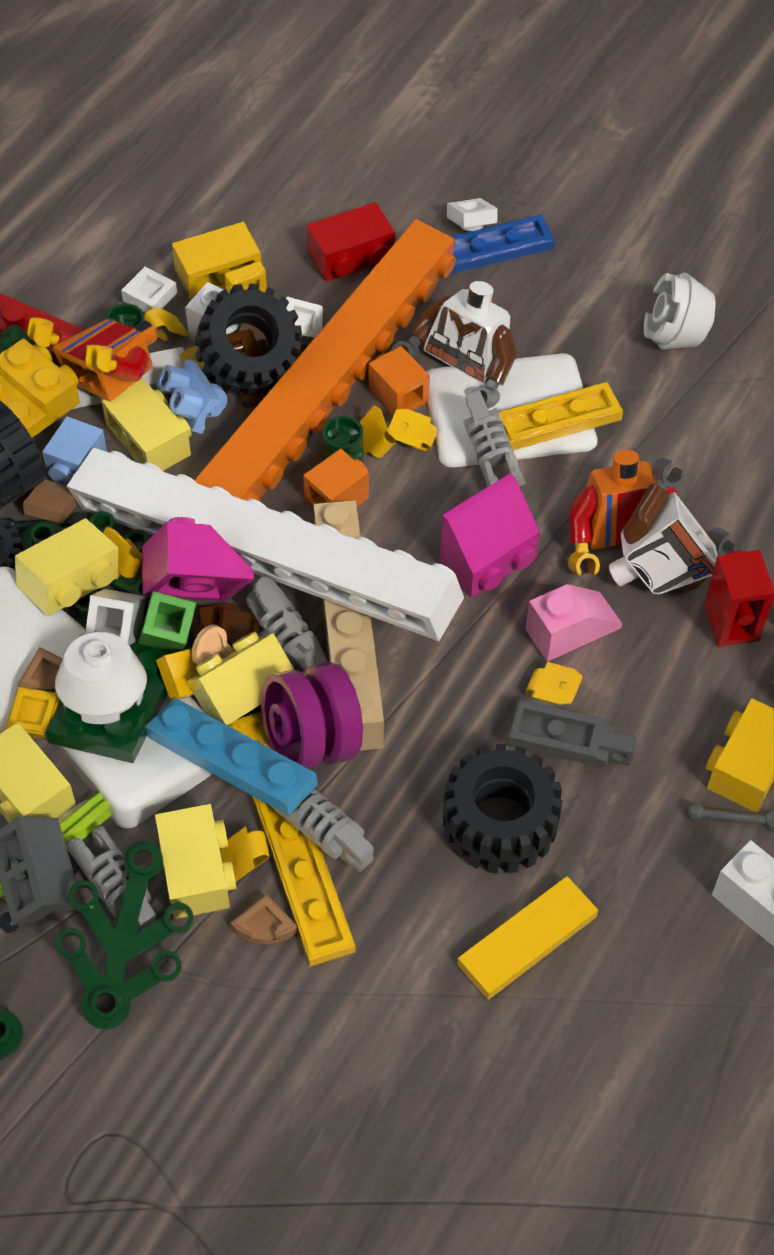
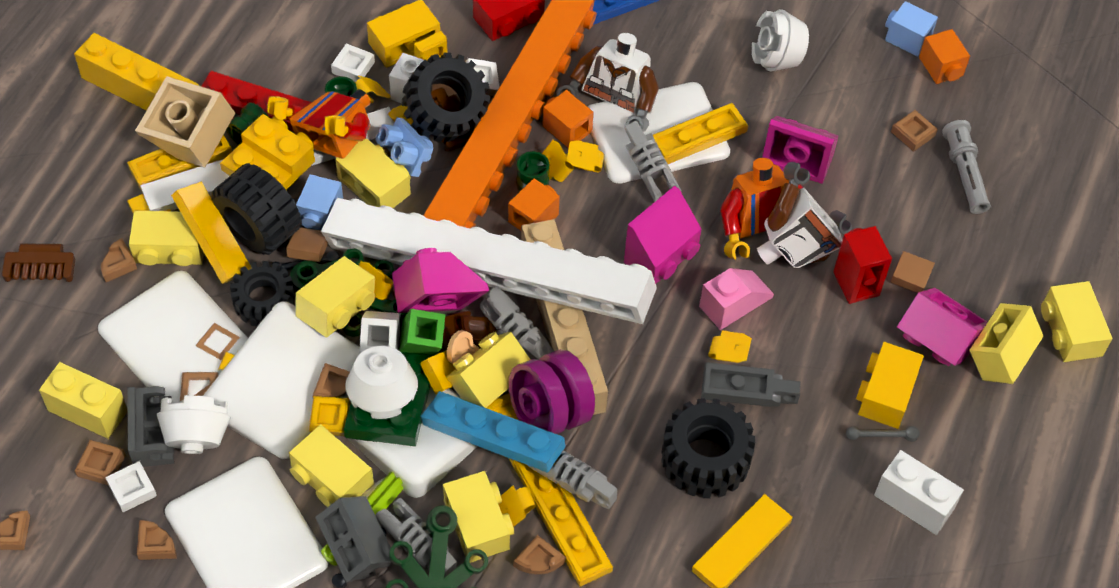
camera: 10 degrees left, 0 degrees up
(687, 441) = (802, 144): none -> dark pink slope

